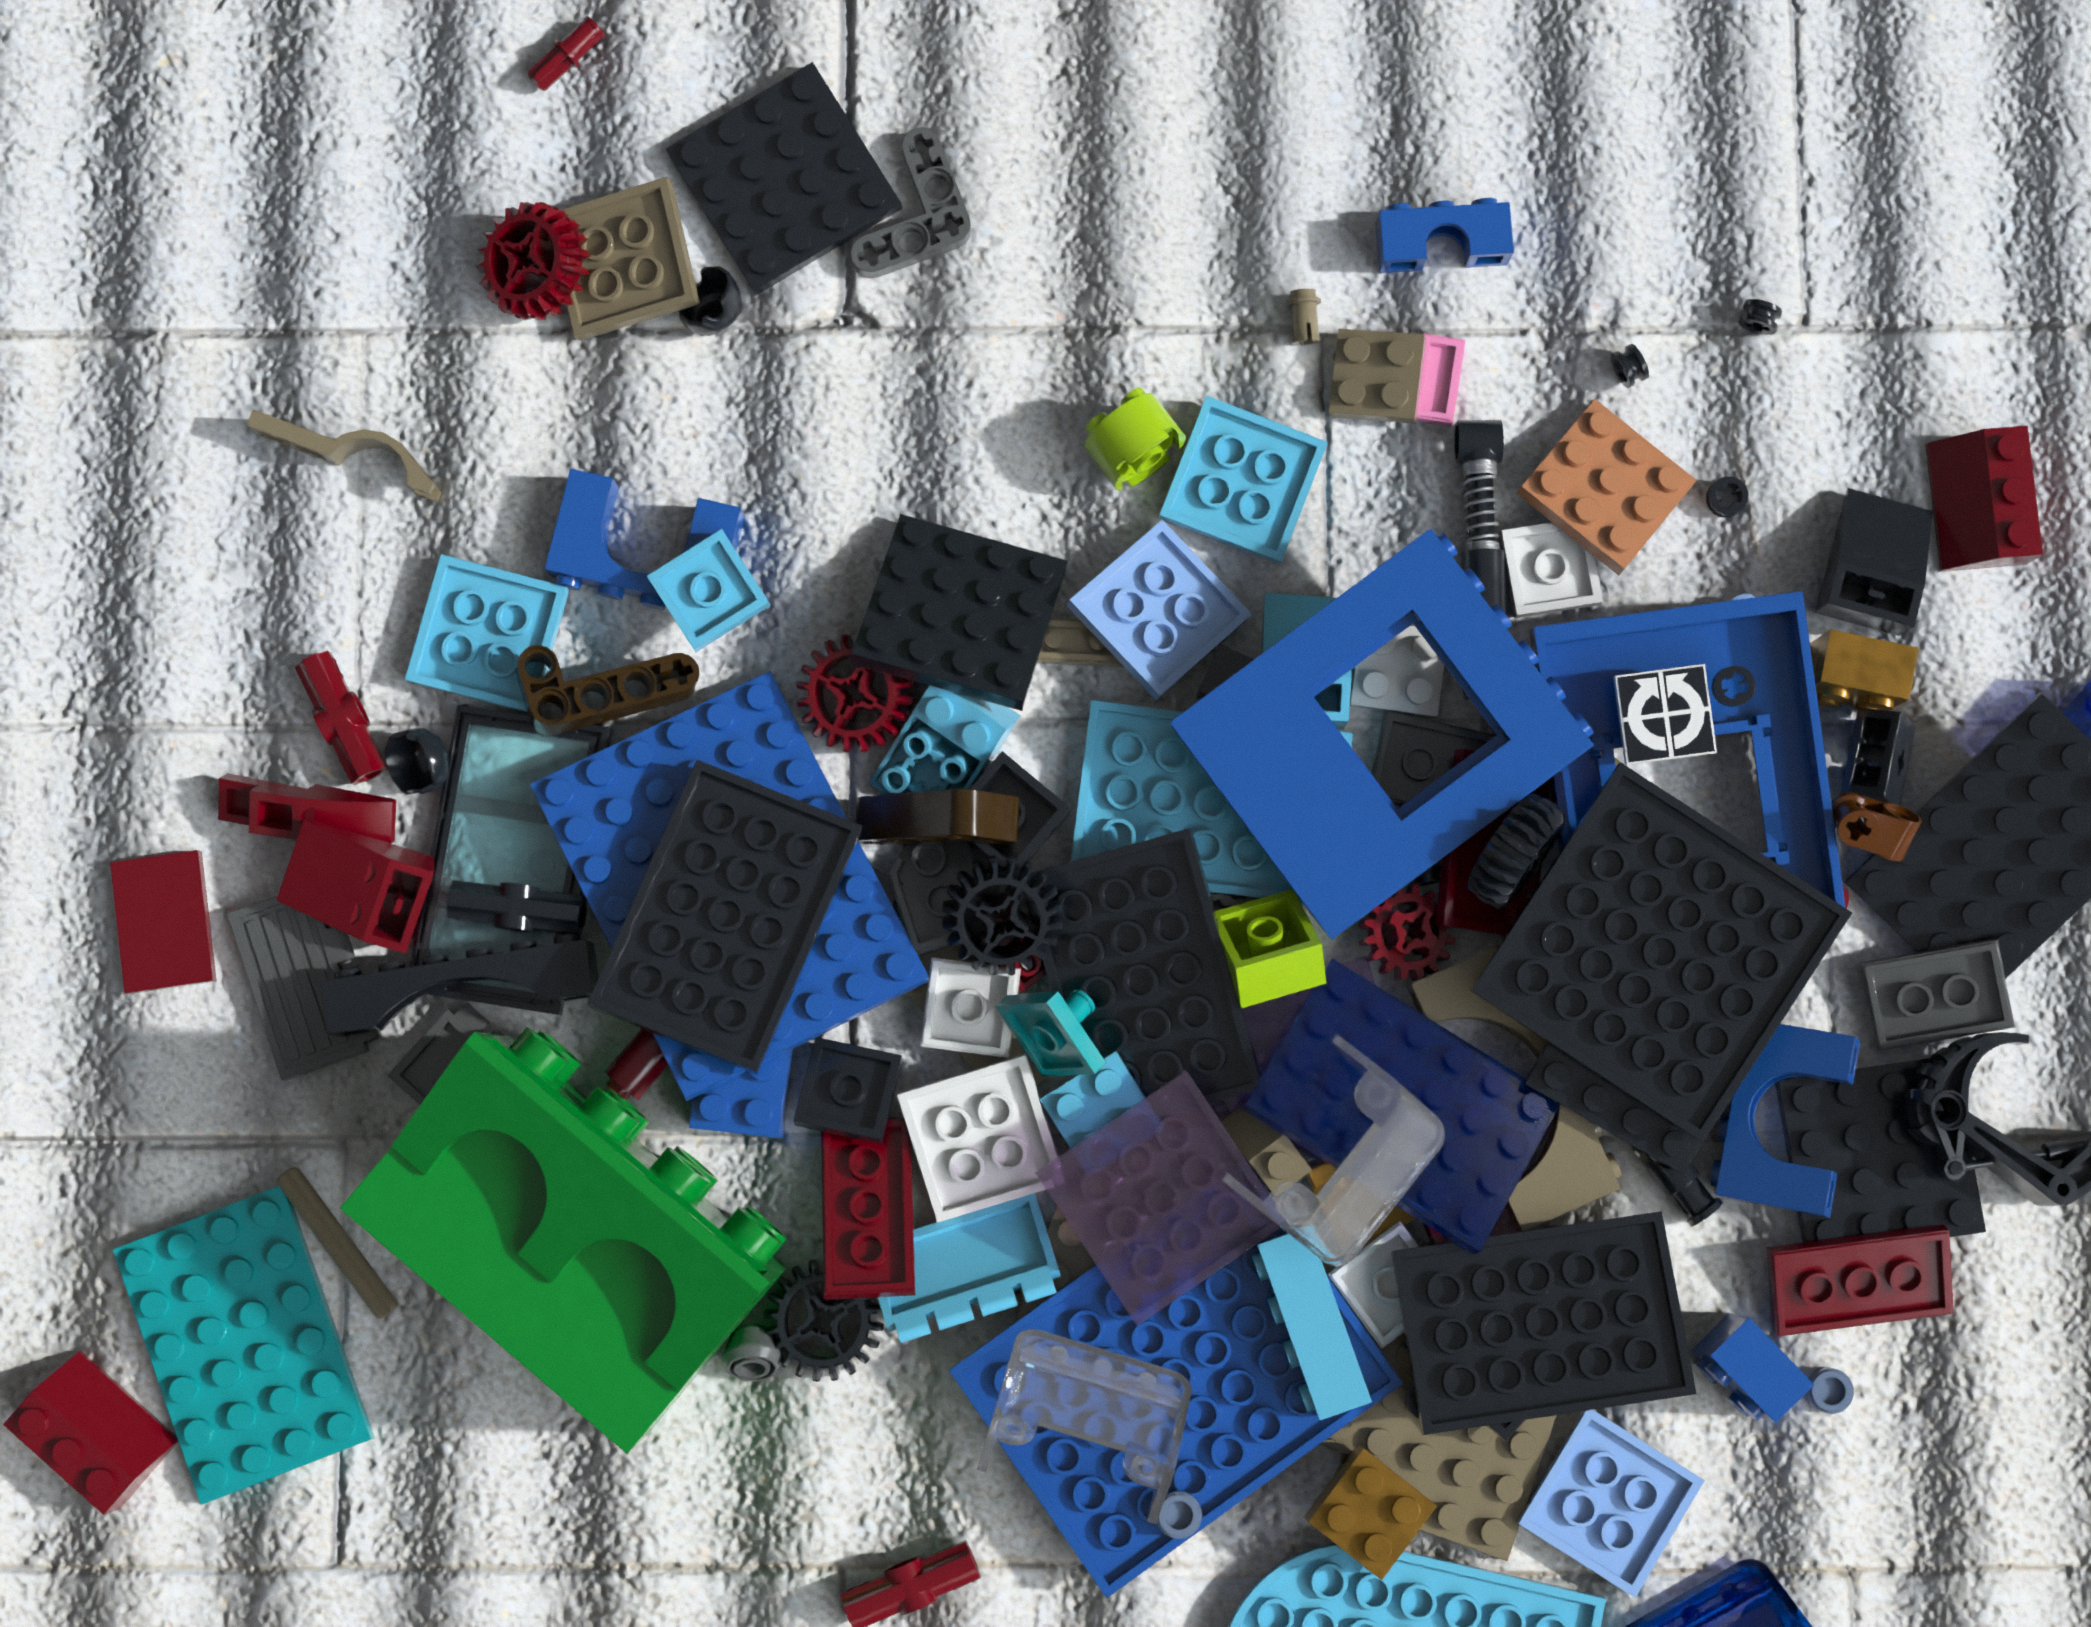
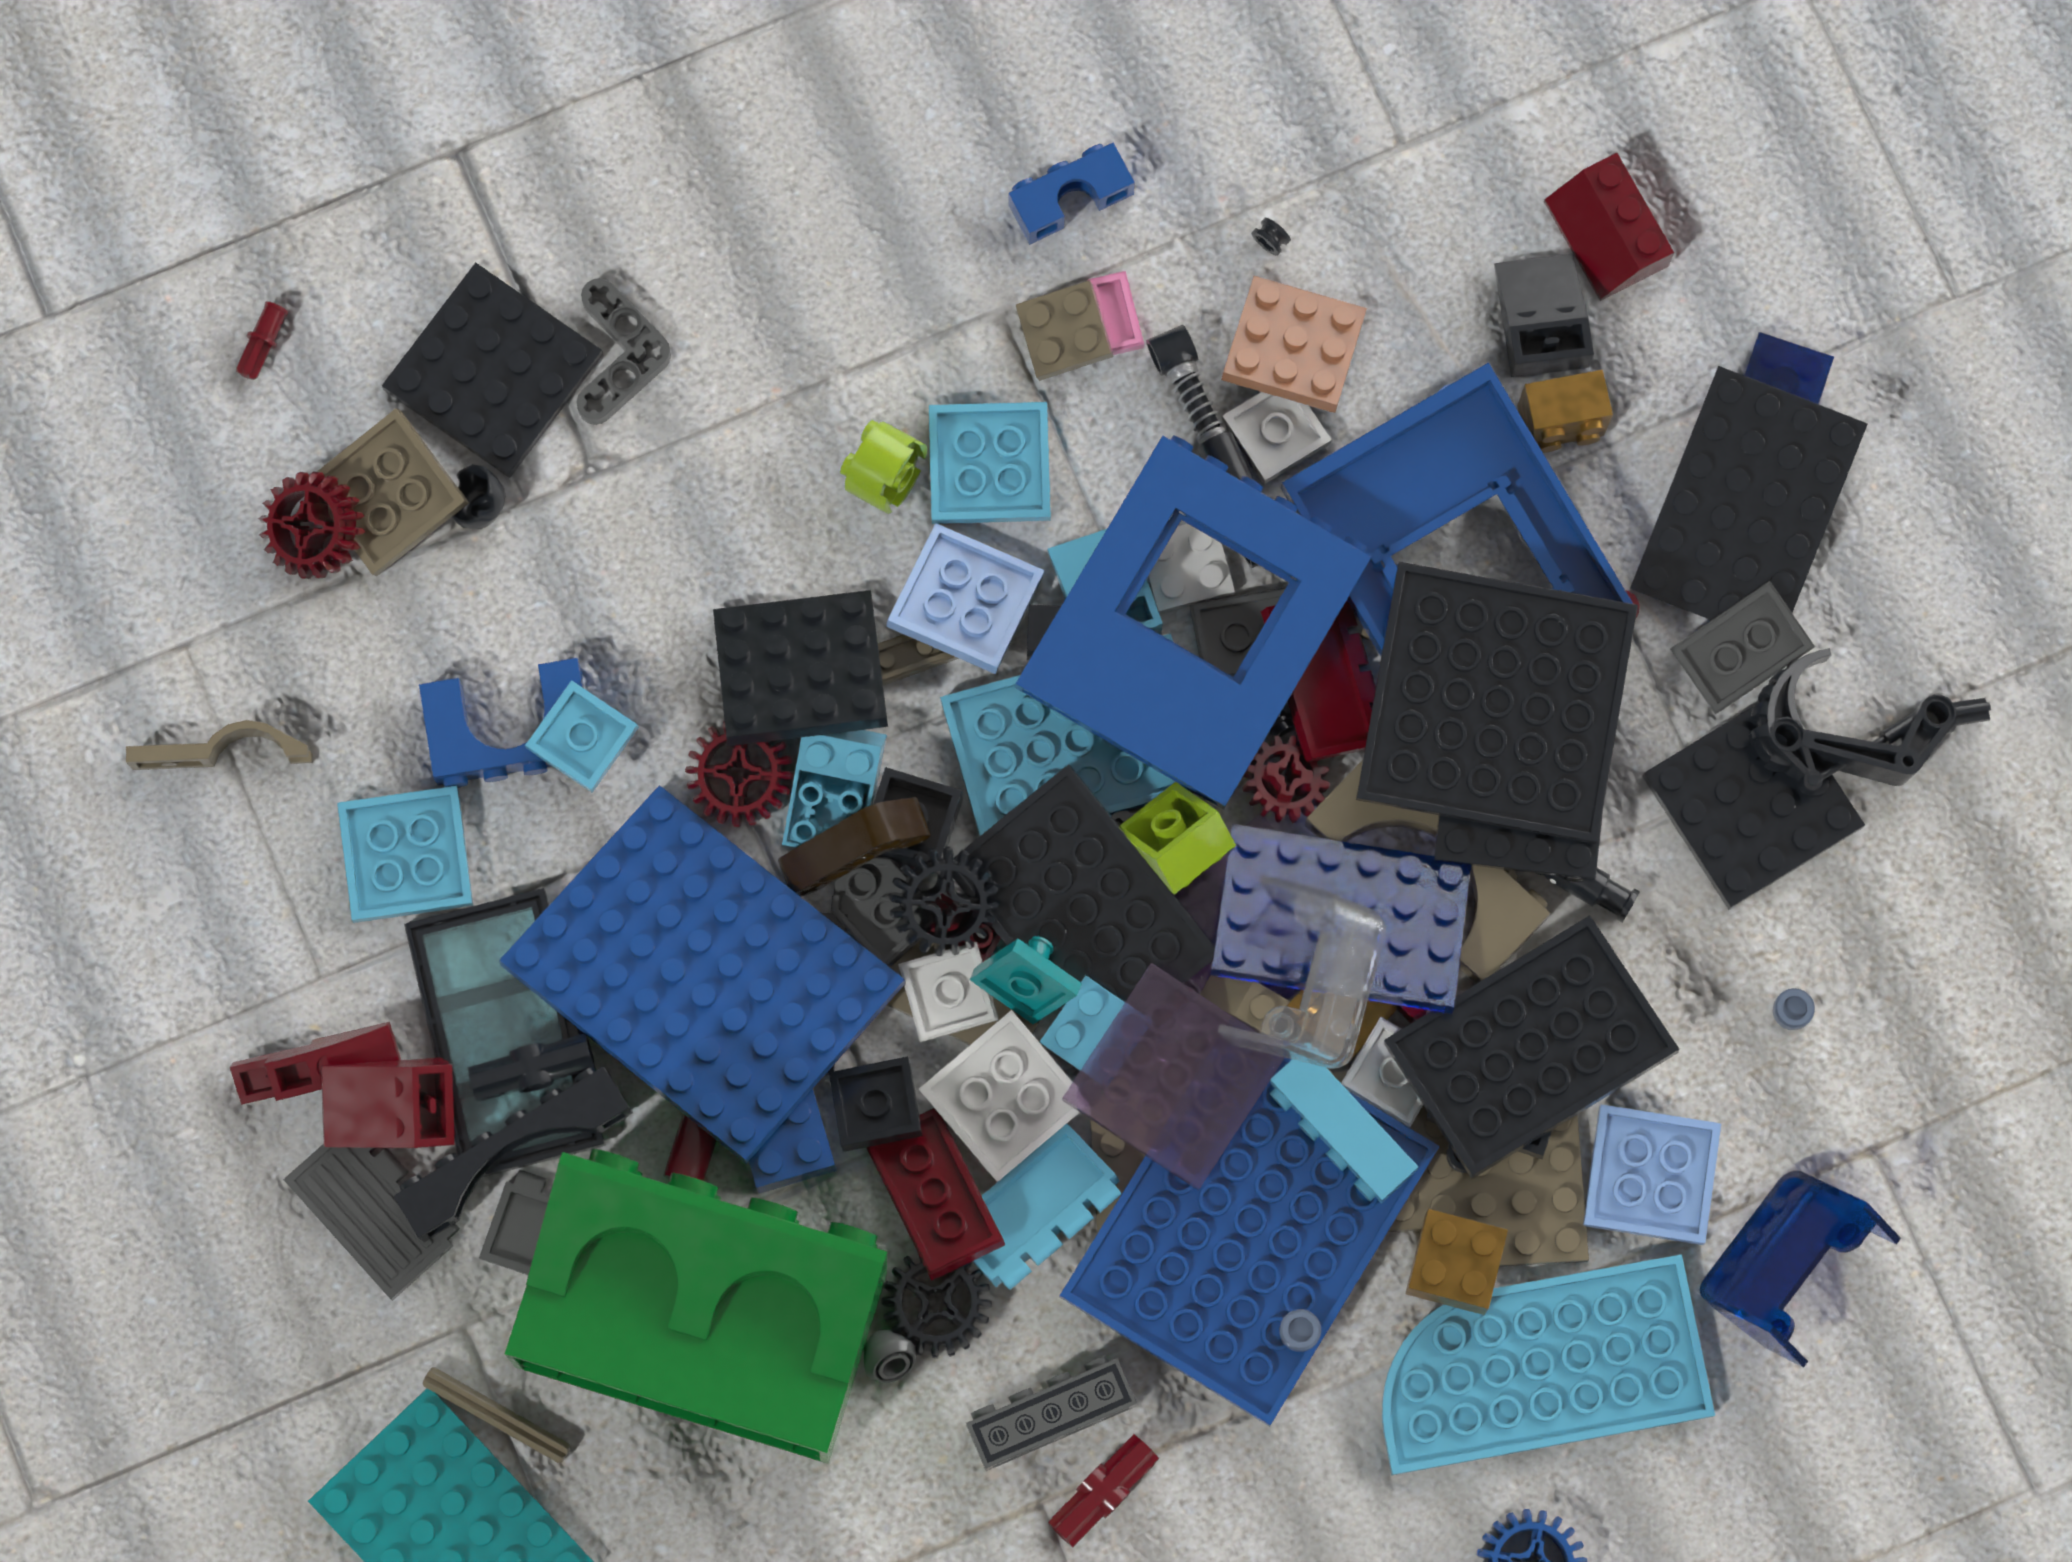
camera: 25 degrees left, 5 degrees down
(163, 922) = (230, 1210): dark red tile -> none
(341, 717) = (310, 975): dark red piece -> none
(417, 761) = (392, 983): black hair -> none
(608, 684) = (529, 852): dark brown beam -> none
(726, 917) = (714, 996): black plate -> none
(890, 1483) = (1051, 1413): none -> dark grey brick
(1095, 1399) = (1191, 1265): clear windscreen -> none
(1304, 316) = (982, 306): dark tan pin -> none
(1516, 851) = (1345, 671): black gear -> none
(1664, 714) = (1419, 509): tile -> none
(1726, 674) = (1455, 456): black bush -> none
(1735, 507) = (1387, 306): black bush -> none
(1746, 1168) = (1650, 856): blue arch -> none
(1752, 1368) = (1718, 1014): blue brick -> none
(1760, 316) = (1361, 152): black bush -> none
(1860, 1280) = (1779, 907): dark red tile -> none
(1874, 825) = (1635, 529): reddish brown piece -> none
(1879, 755) = (1612, 475): black brick -> none

